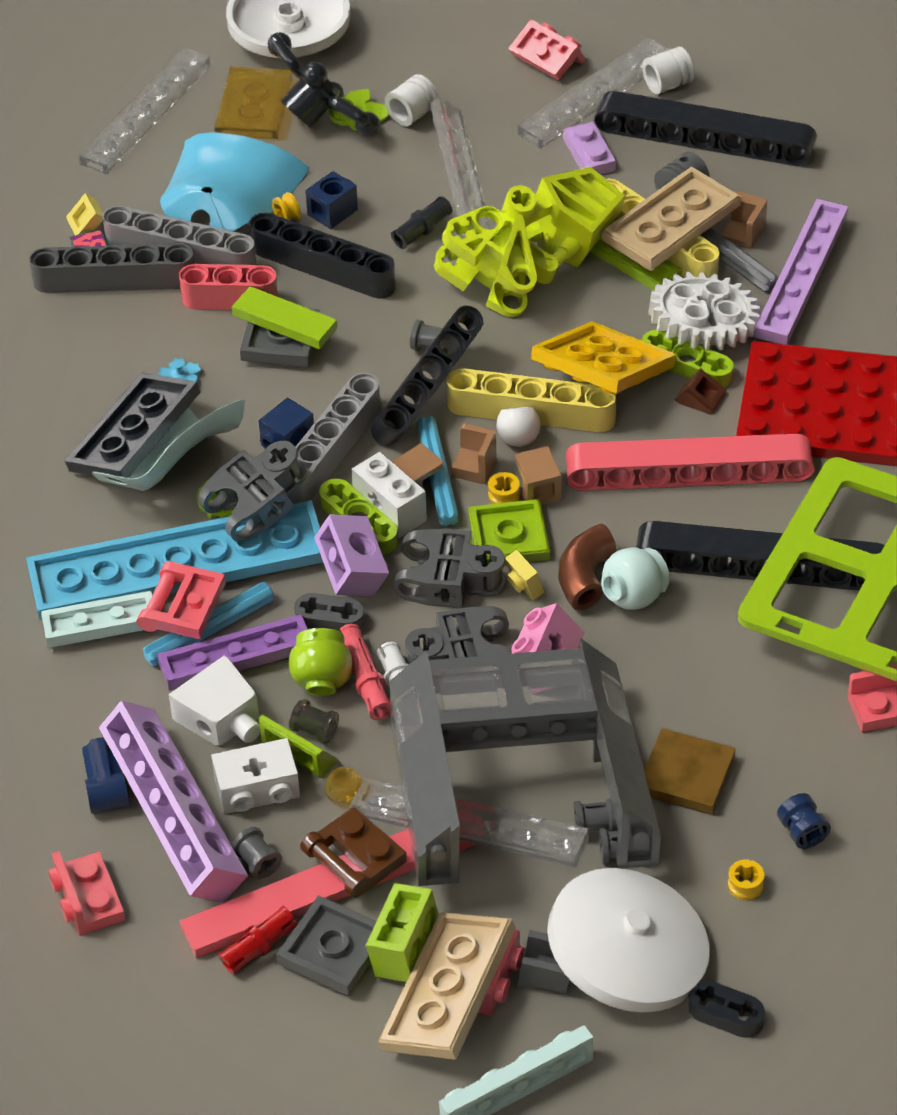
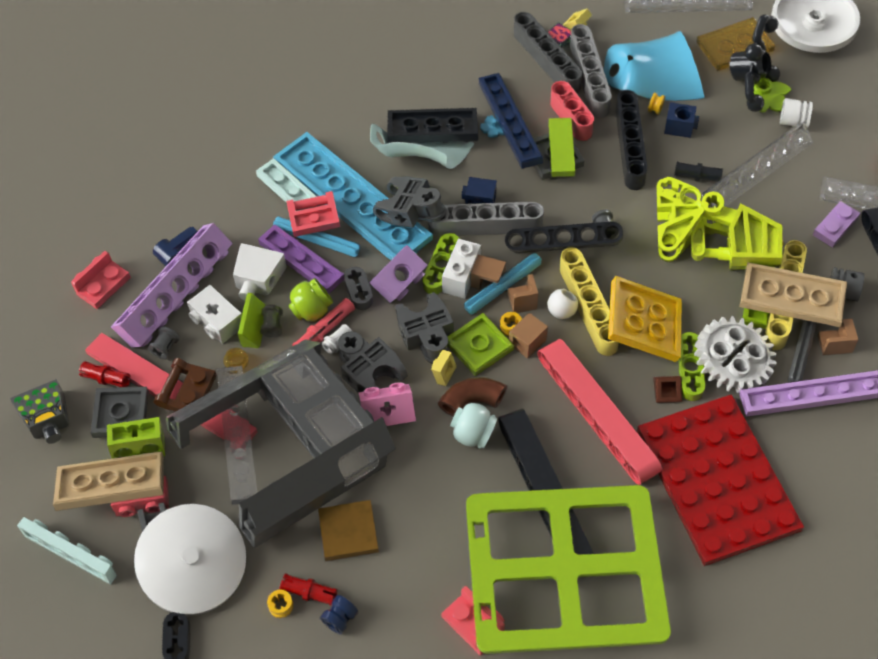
camera: 60 degrees right, 10 degrees up
(193, 348) = (510, 121): none -> dark blue tile
(267, 1033) = (43, 410): none -> dark grey torso
(746, 841) = (308, 589): none -> red pin

